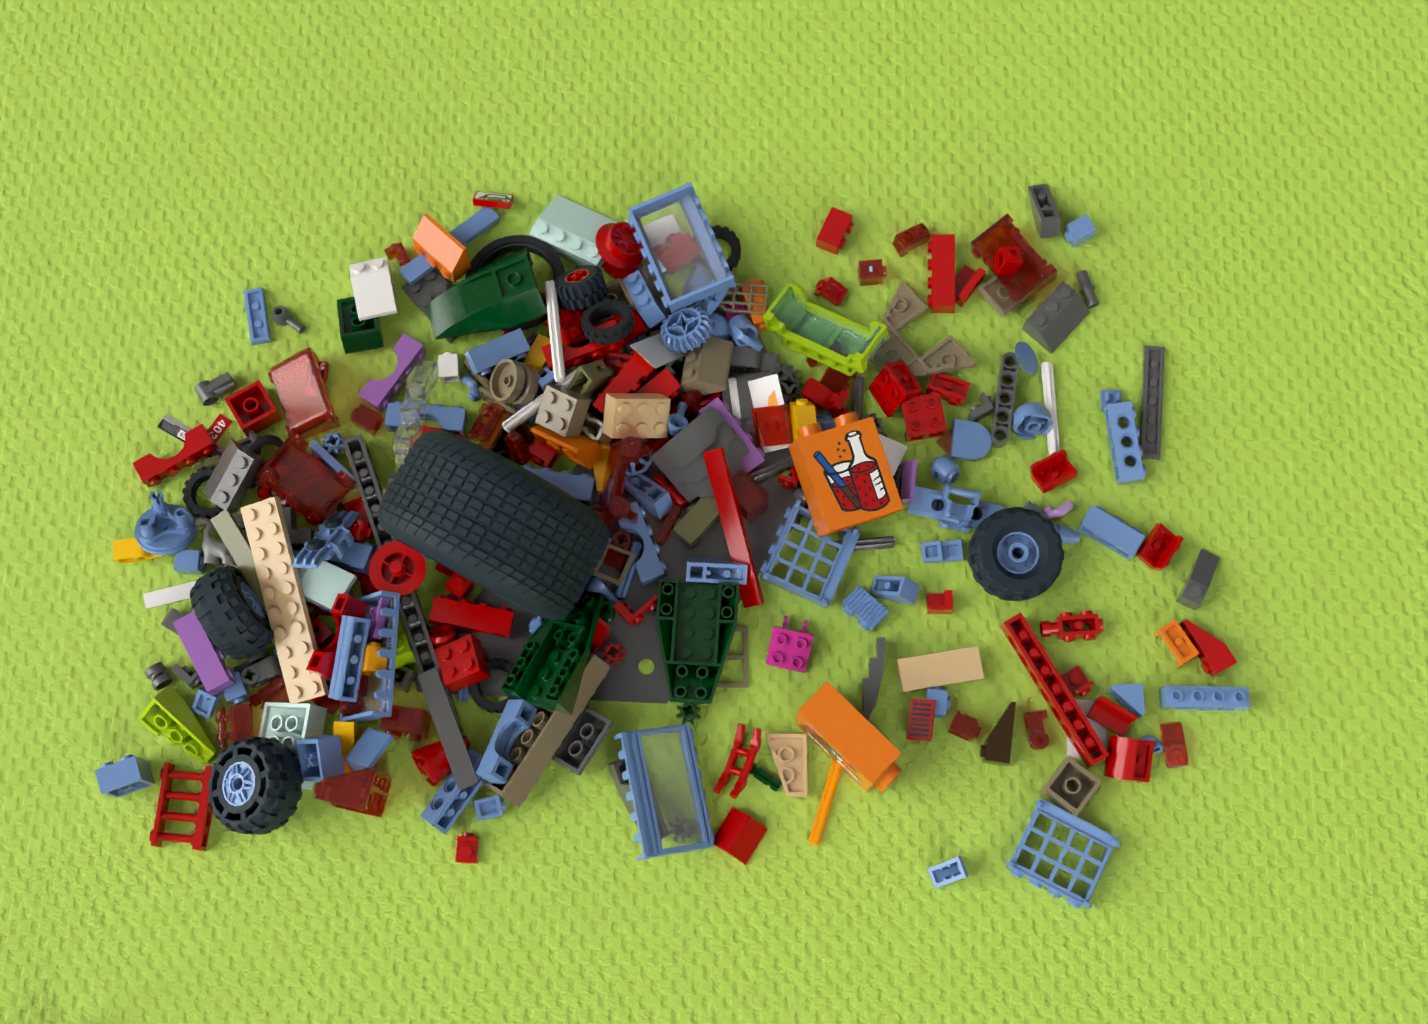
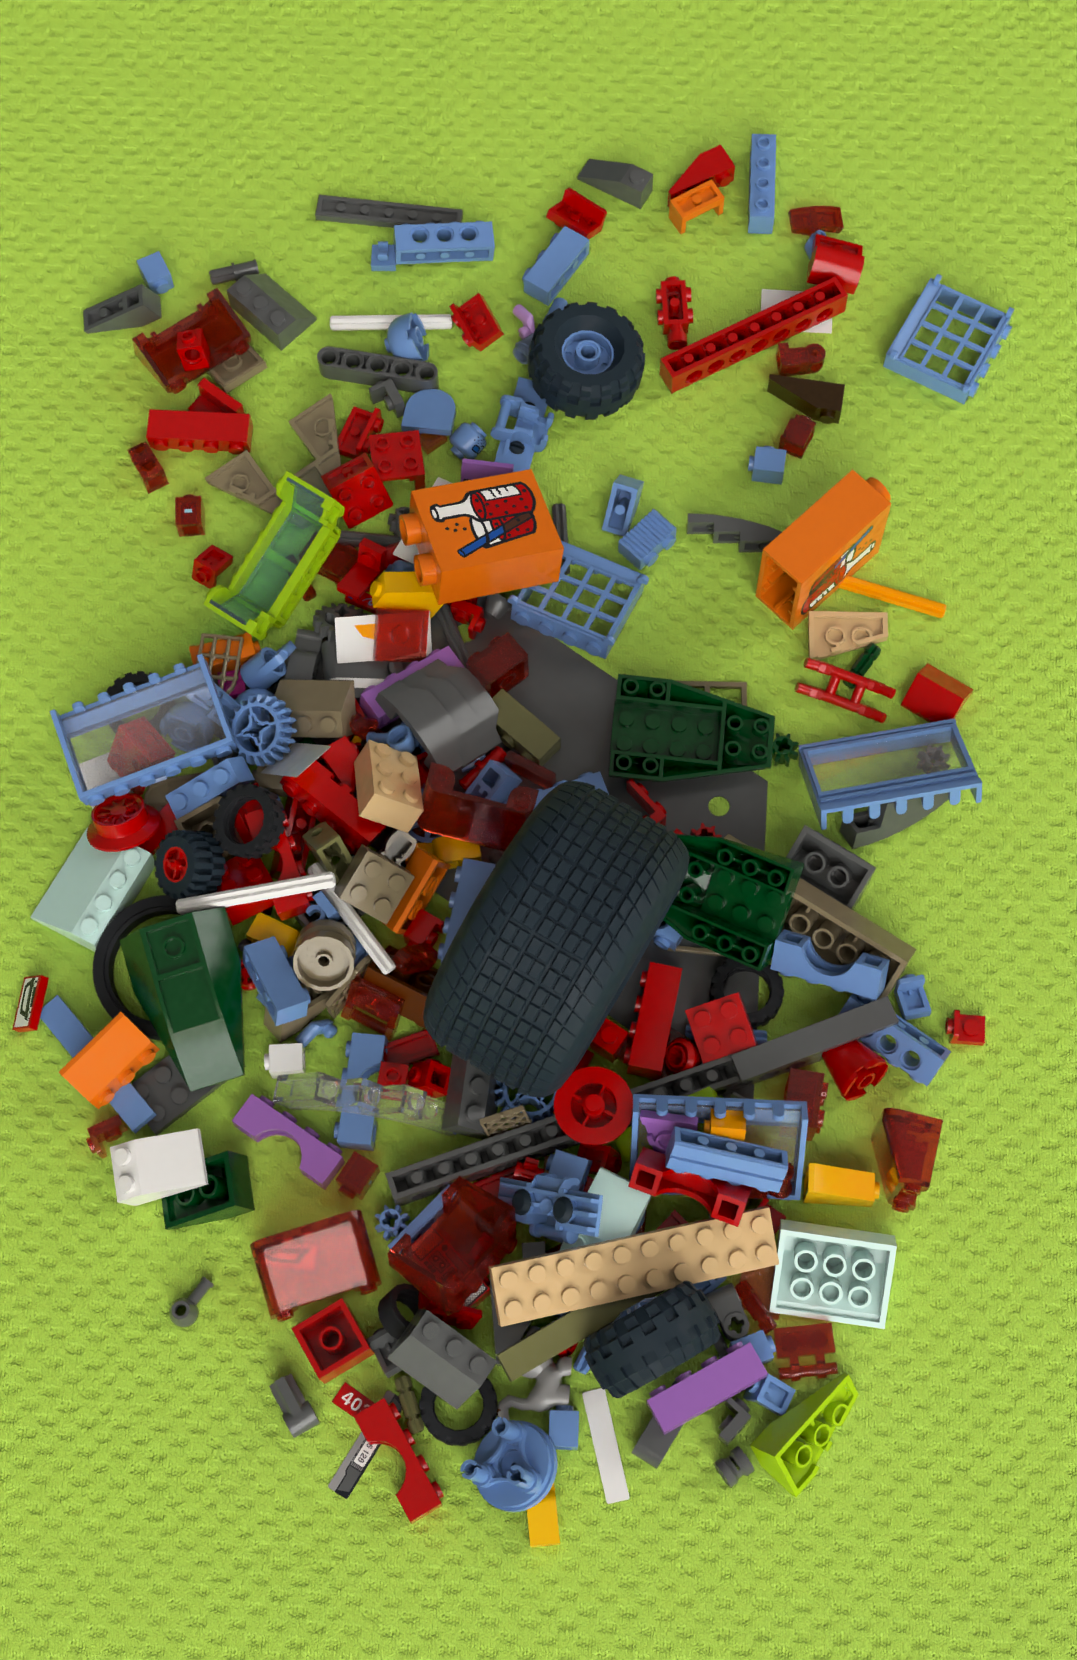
camera: 90 degrees left, 5 degrees down
(124, 776) = (884, 1502): medium blue brick -> none
(201, 819) = (938, 1392): red fence -> none
(255, 785) = (899, 1298): black wheel -> none
(257, 316) = (180, 1349): medium blue tile -> none
(320, 757) = (859, 1208): medium blue brick -> none
(368, 749) = (848, 1144): medium blue slope -> none
(715, 570) = (596, 711): medium blue slope -> none
(733, 523) = (537, 679): red tile -> none
(789, 648) = (698, 626): dark pink plate -> none
(834, 231) = (126, 557): red brick -> none
(921, 720) = (792, 477): red panel -> none
(939, 668) = (726, 459): tan brick -> none
(940, 603) = (640, 455): red panel -> none
(942, 551) = (573, 451): medium blue slope -> none
(947, 872) = (974, 459): medium blue slope -> none
(1026, 357) = (324, 341): medium blue sticker -> none
(1070, 786) = (869, 324): dark tan brick -> none
(1077, 682) = (741, 310): red bracket -> none
(1111, 716) = (782, 279): red panel -> none
(1130, 696) = (761, 257): medium blue slope -> none

